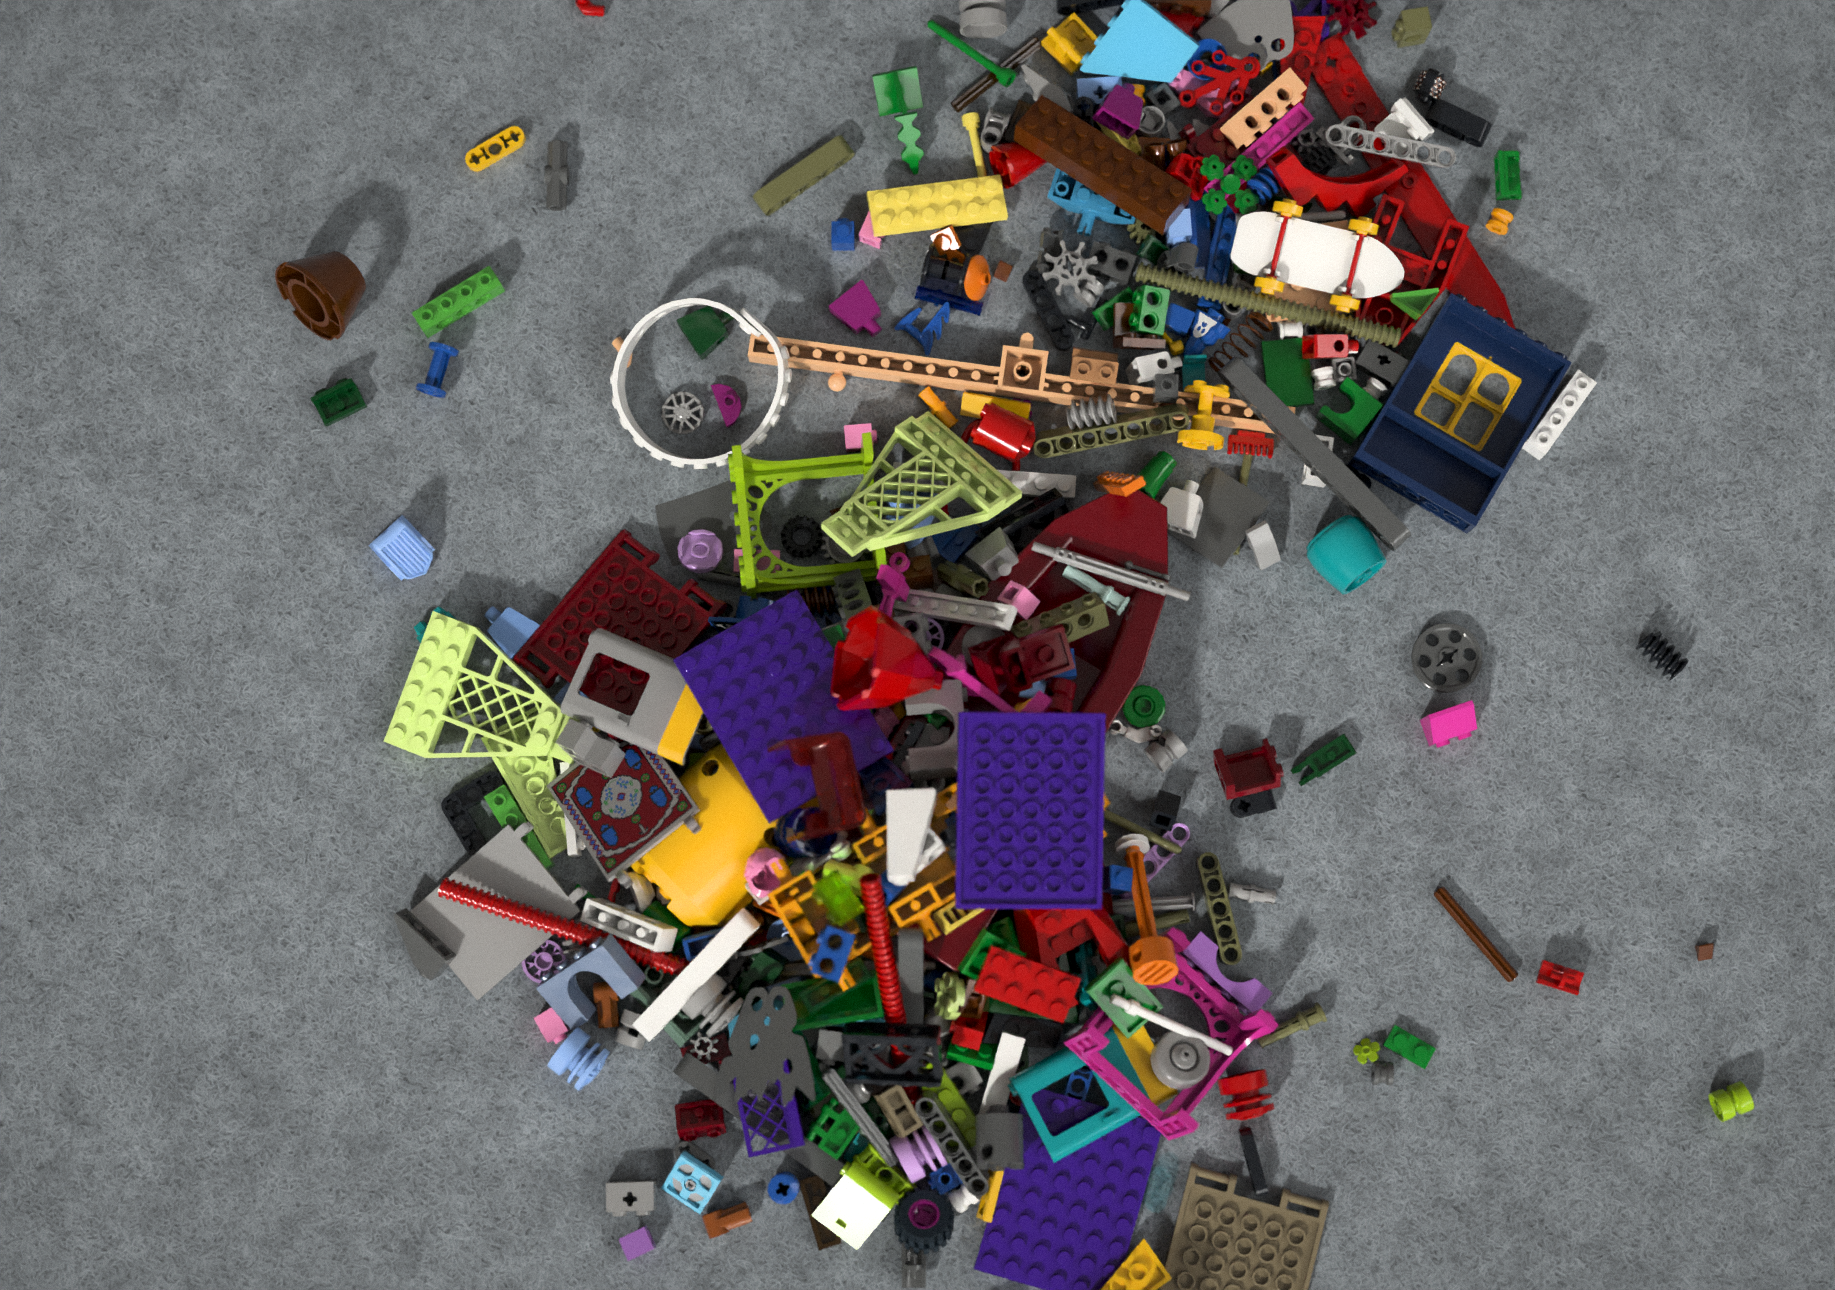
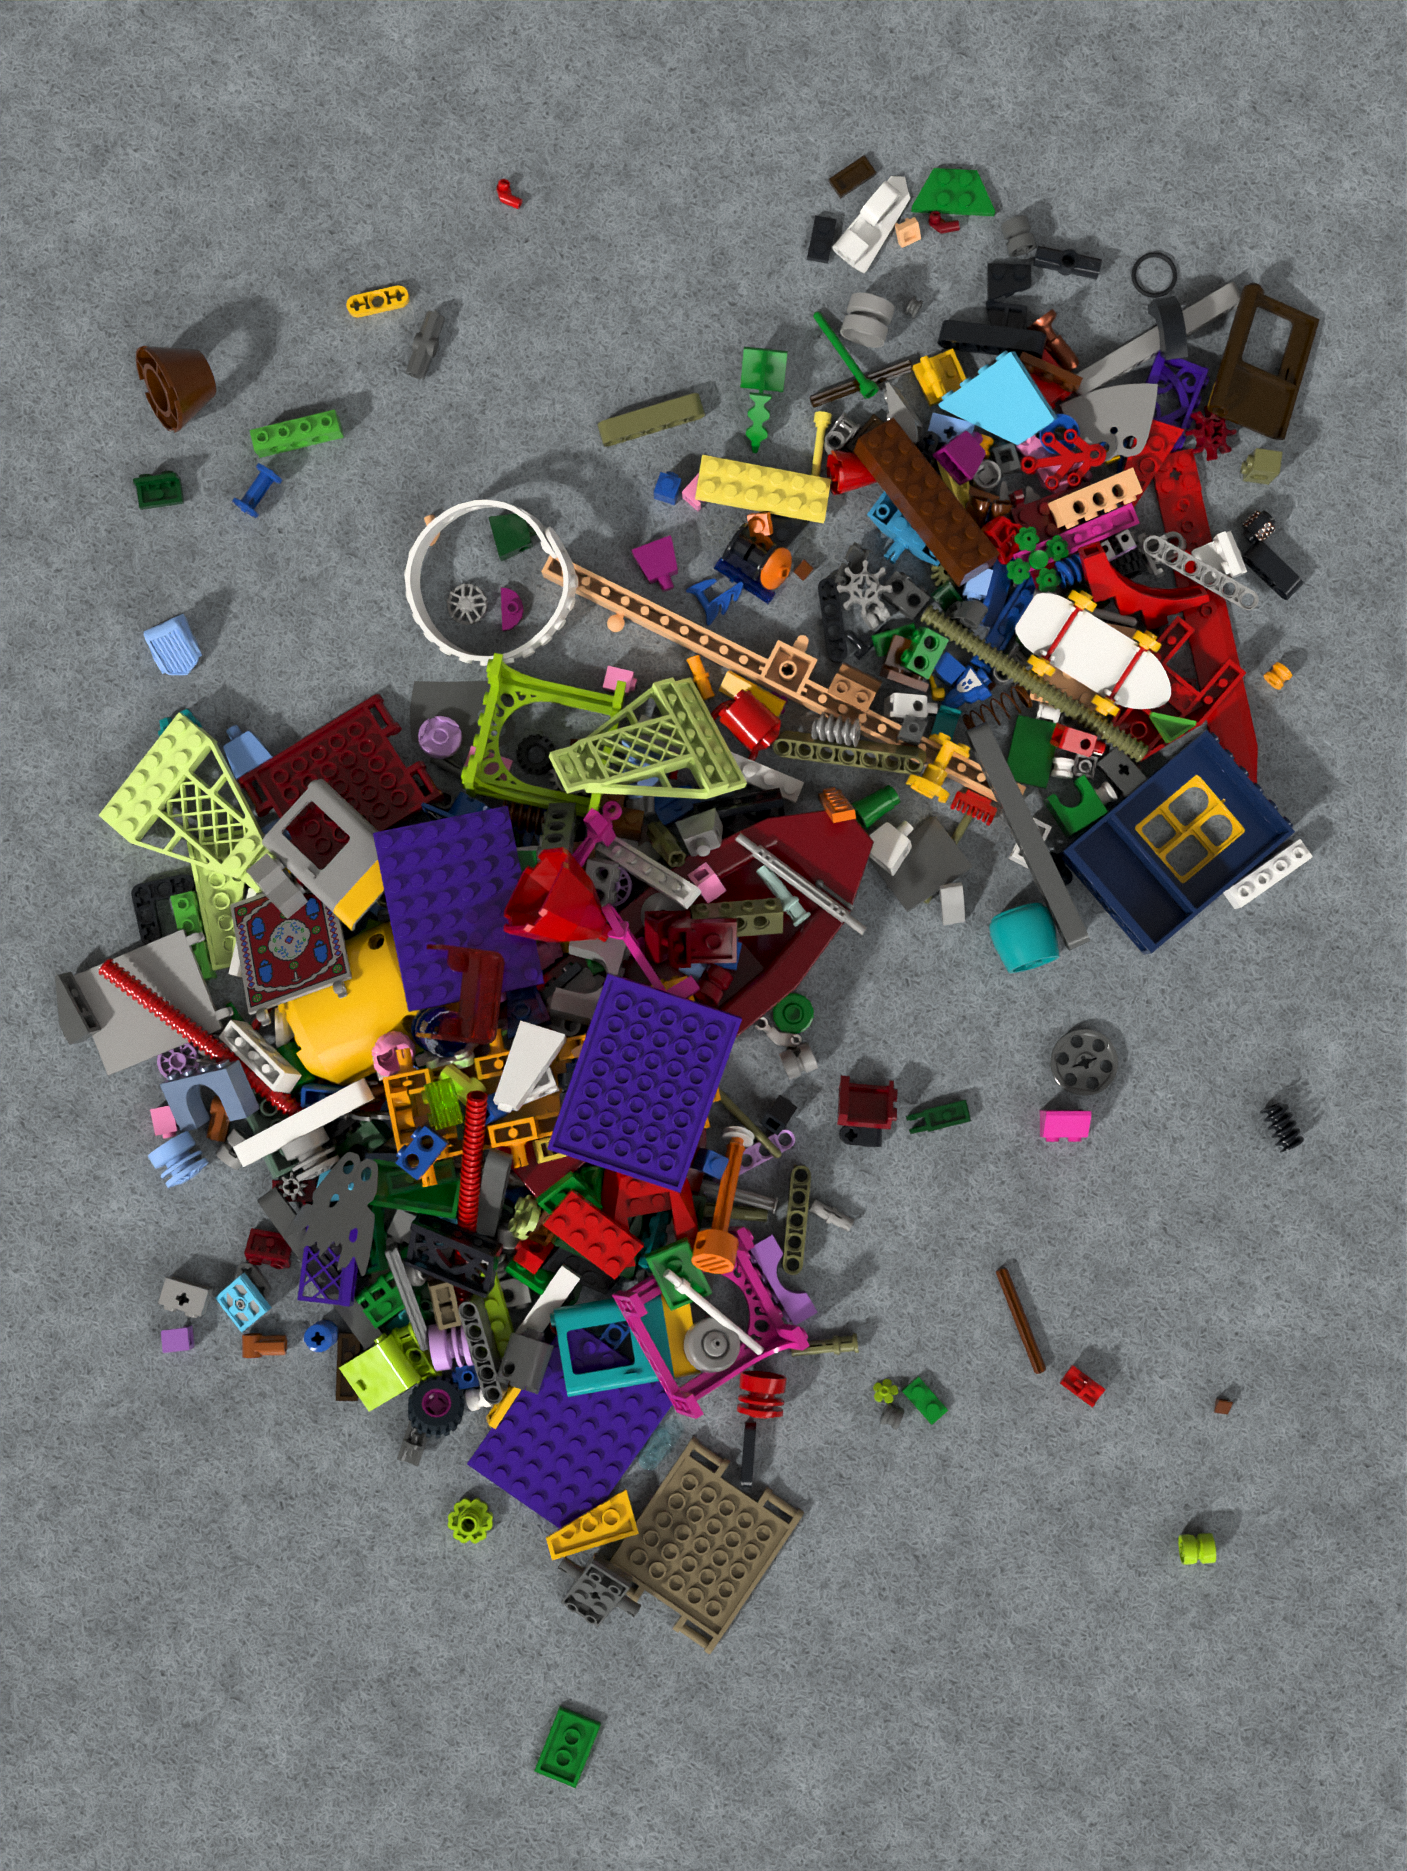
camera: 25 degrees right, 5 degrees up
(1308, 145) = (1126, 546): none -> flat silver piece
(1507, 175) = (1301, 635): green hinge -> none

